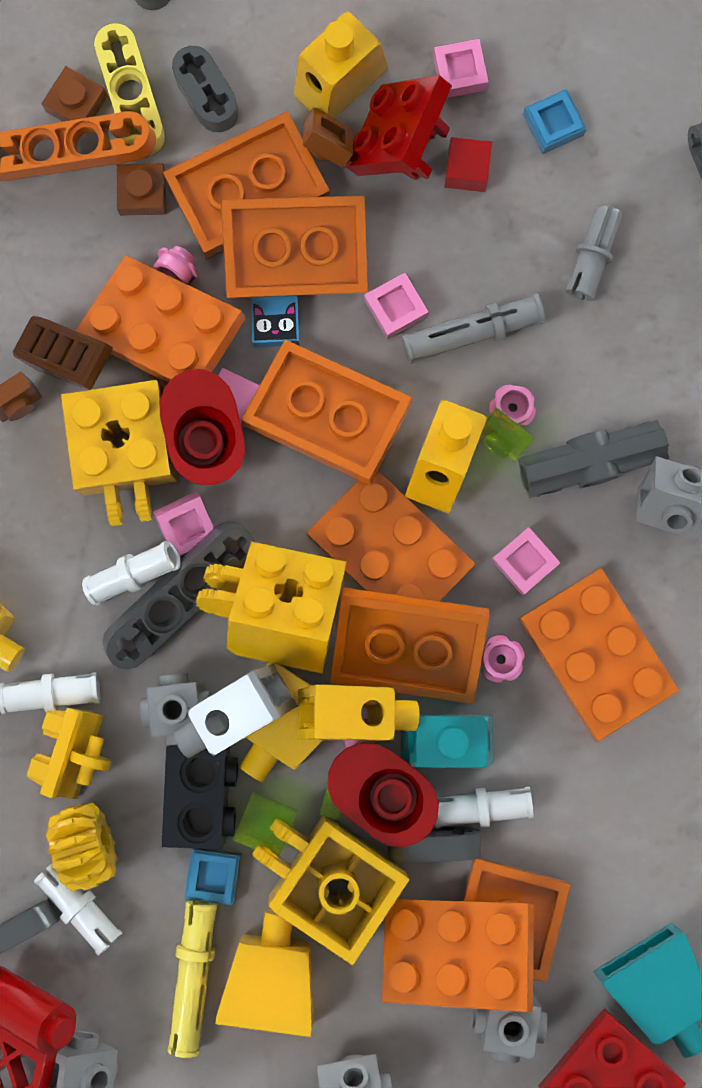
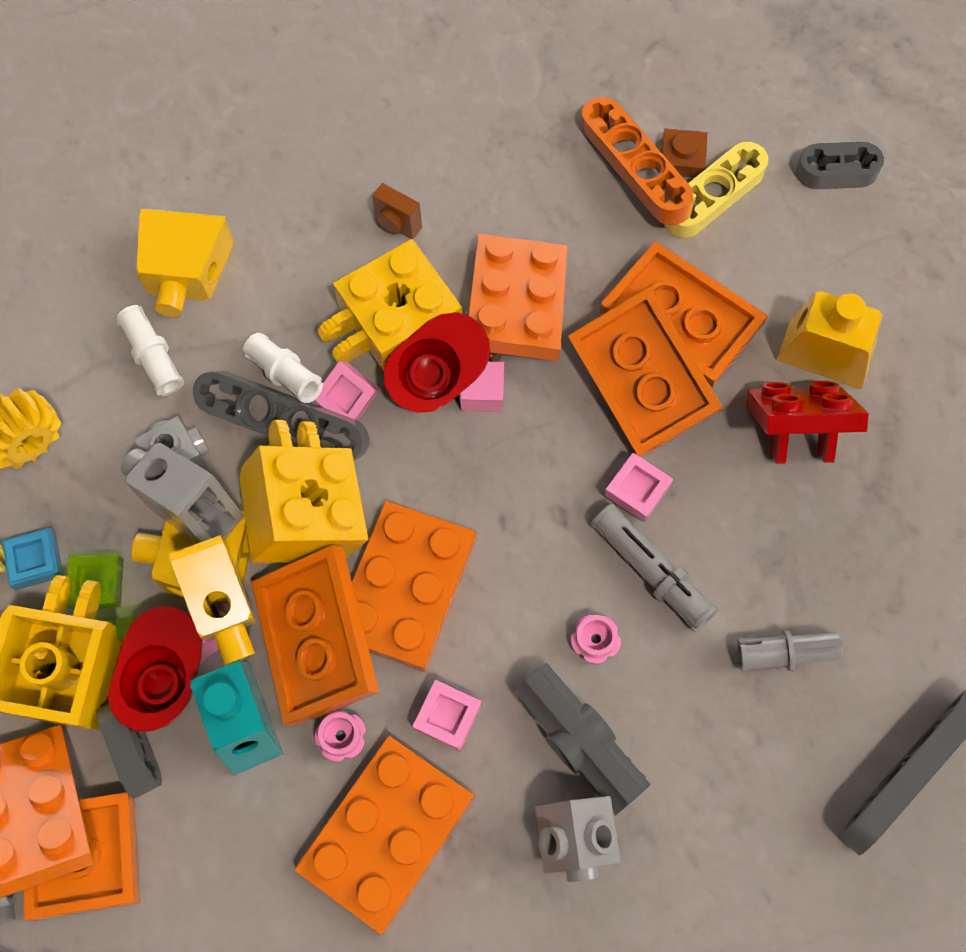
camera: 65 degrees right, 15 degrees down
(58, 351) = (452, 228): reddish brown slope -> none
(74, 753) = (100, 389): yellow hips -> none
(141, 189) = (632, 234): dark orange plate -> none
(177, 264) = (579, 289): bright pink plate -> none
(184, 794) = (98, 497): black brick -> none
(213, 84) = (743, 241): dark grey beam -> none
(274, 320) = (571, 392): tile -> none
(327, 412) = (506, 469): orange plate -> none
(328, 138) = (762, 358): dark orange plate -> none
(448, 451) = (517, 588): yellow torso -> none
(462, 67) = (897, 447): bright pink plate -> none
(468, 164) = (810, 494): red piece -> none
(484, 807) = (184, 780): white pin -> none
(505, 436) = (560, 639): clear neon green plate -> none
(554, 121) = (899, 557): dark azure tile -> none

